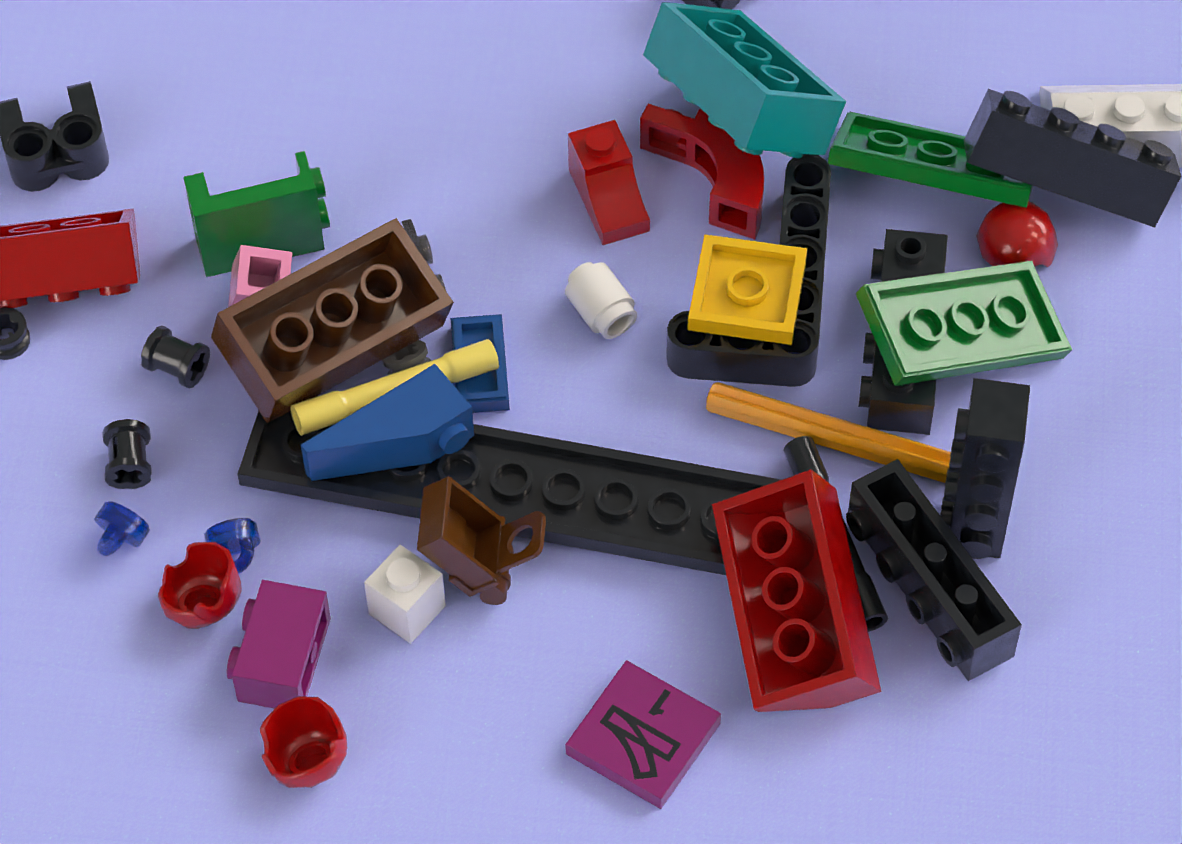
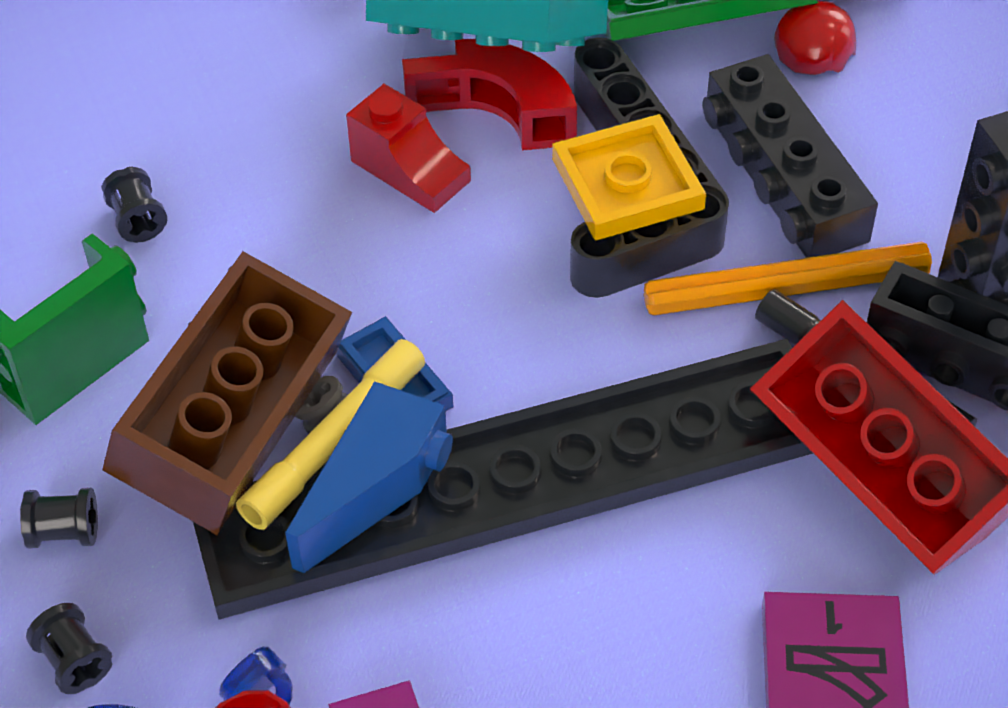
camera: 30 degrees left, 5 degrees down
(256, 269) = (104, 389): bright pink brick -> none
(373, 138) = (136, 199): none -> black bush
(405, 593) = (489, 640): white brick -> none
(474, 540) = (539, 549): reddish brown piece -> none
(601, 299) = (477, 257): white brick -> none
(963, 322) = (842, 120): tile -> none

